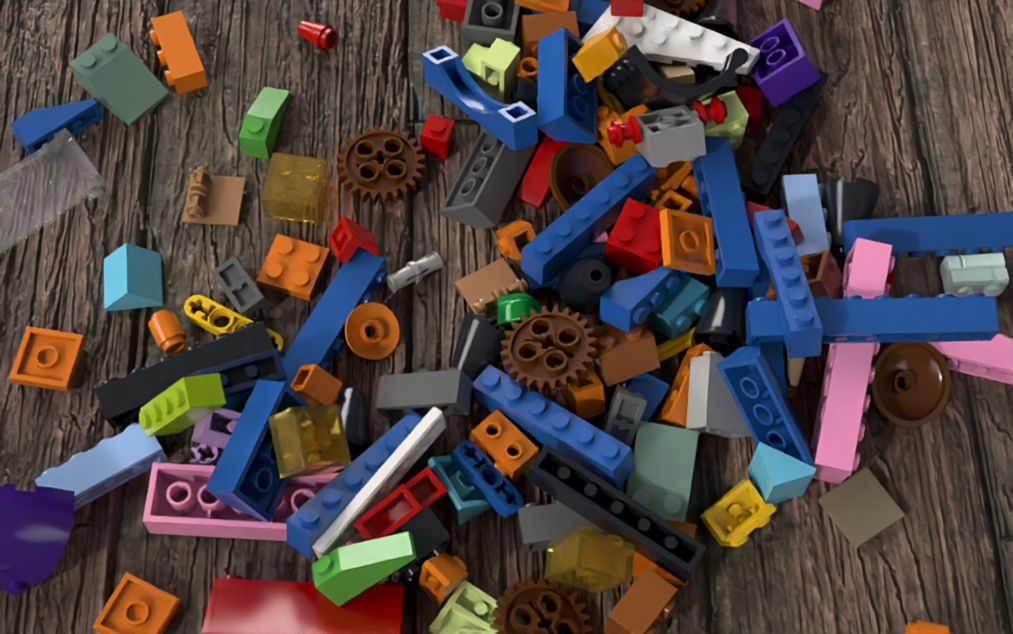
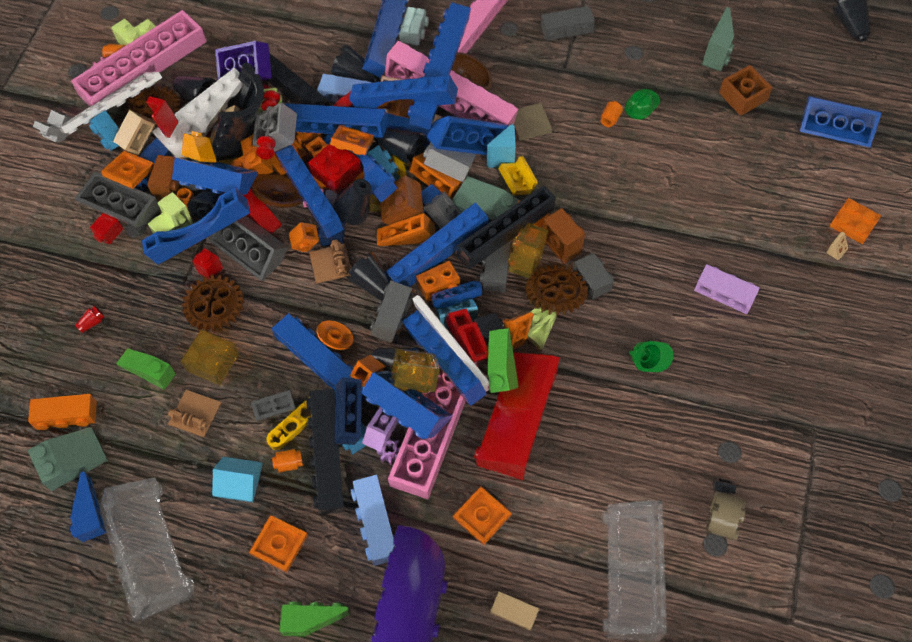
camera: 70 degrees left, 0 degrees up
(182, 405) = (364, 440): lime brick -> none
(293, 267) = (267, 374): orange plate -> none
(348, 237) = (266, 332): red panel -> none
(414, 271) = (300, 302): light grey pin -> none
(512, 306) = (354, 248): green piece -> none
(549, 350) = (406, 240): reddish brown gear -> none

